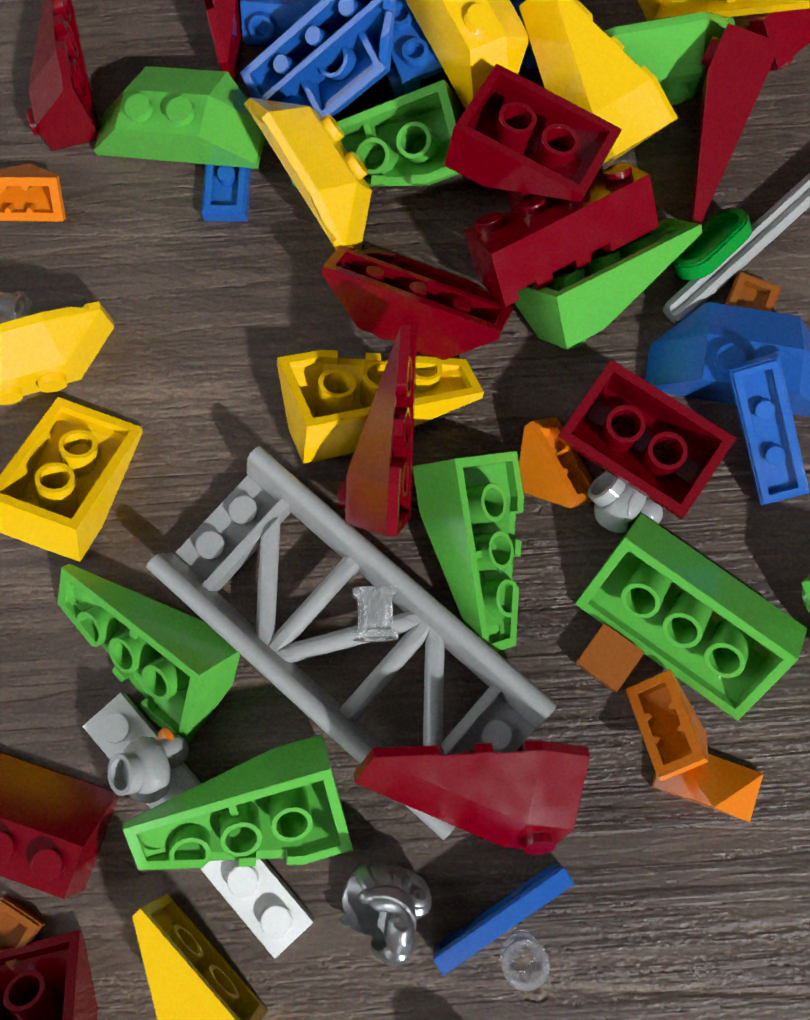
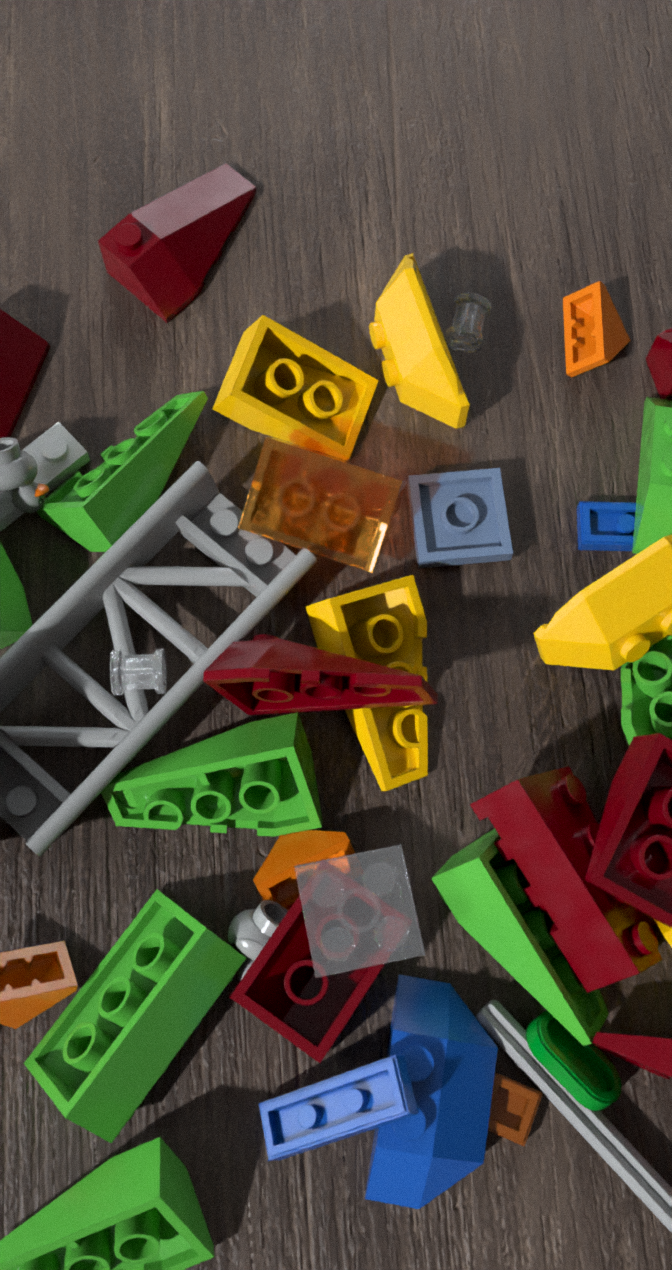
camera: 80 degrees right, 5 degrees down
(196, 445) = (321, 504): none -> clear orange slope
(213, 322) = (459, 518): none -> sand blue plate
(392, 290) = (486, 714): dark red wedge -> none
(608, 399) = (359, 911): none -> clear plate
(609, 658) = (96, 923): dark orange tile -> none

